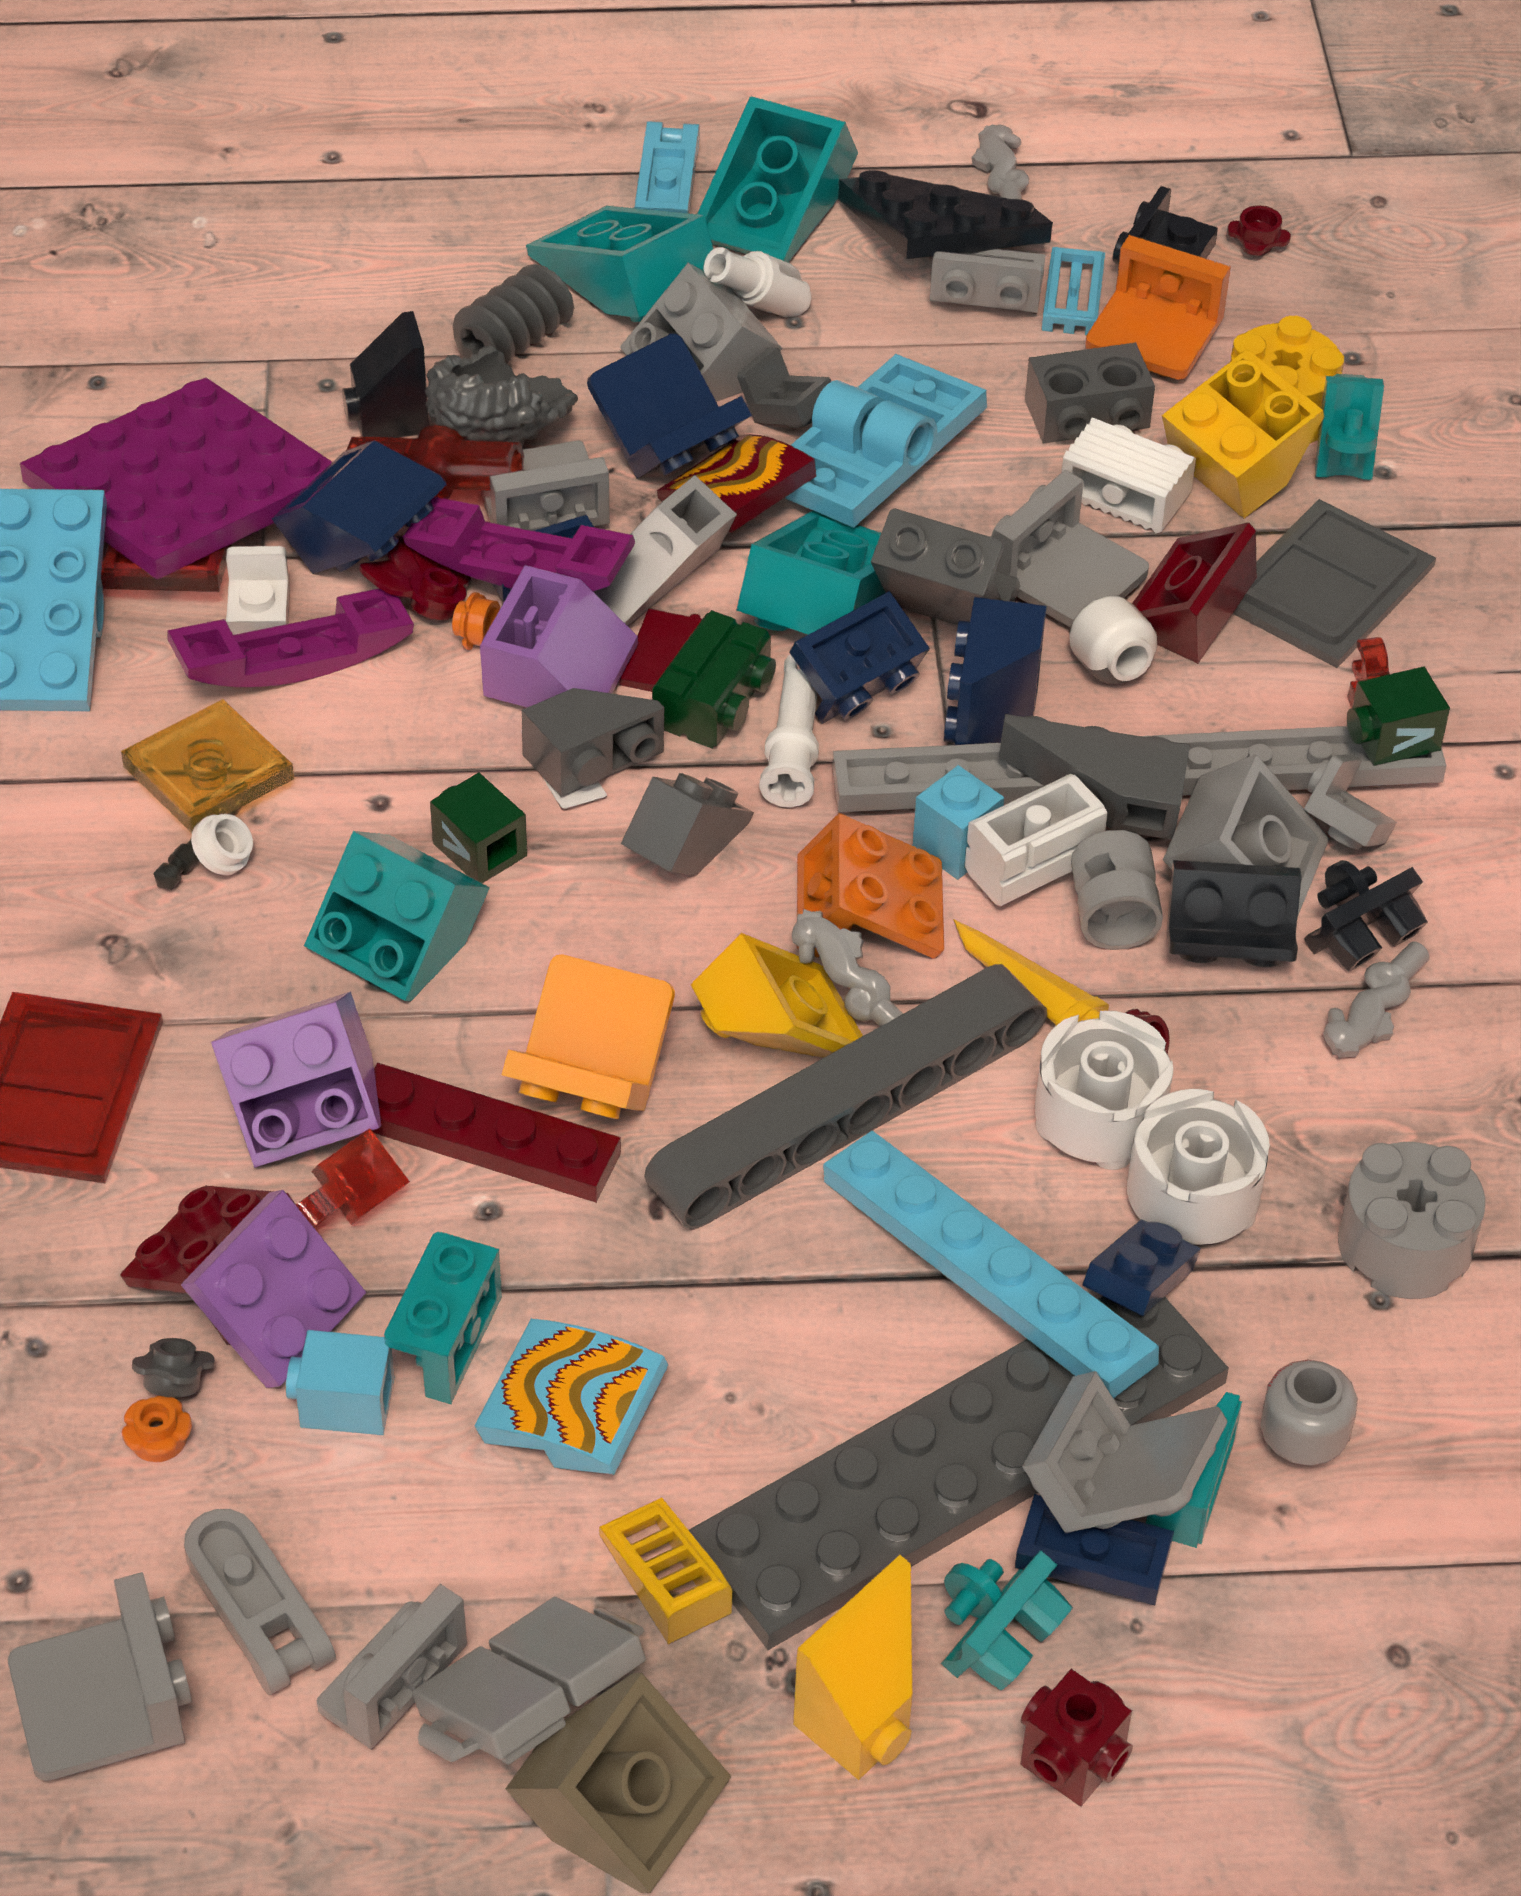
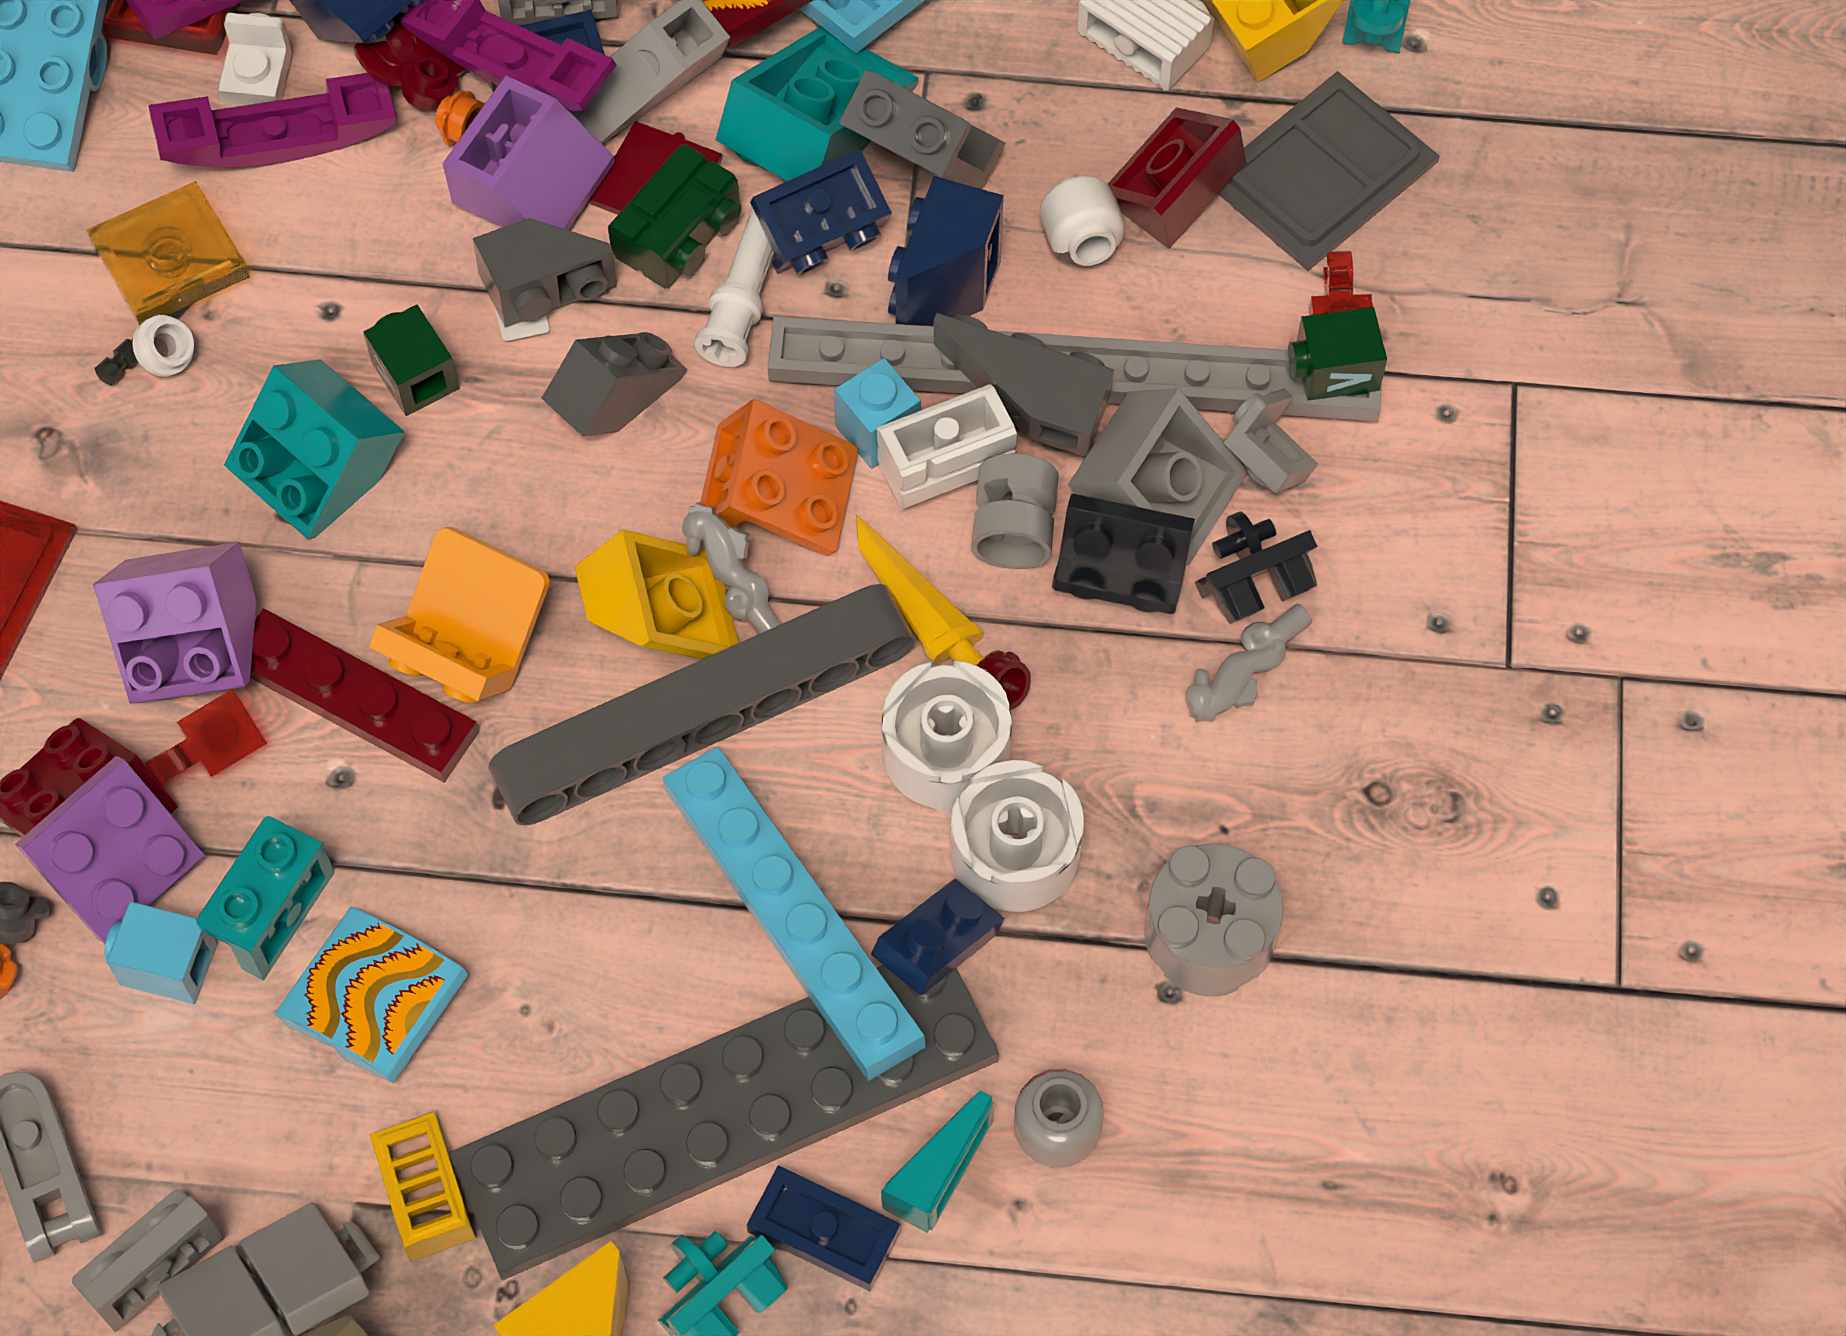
camera: 10 degrees right, 15 degrees up
(1060, 558) = (1055, 115): light grey bracket -> none
(1105, 1471) = (851, 1157): light grey bracket -> none

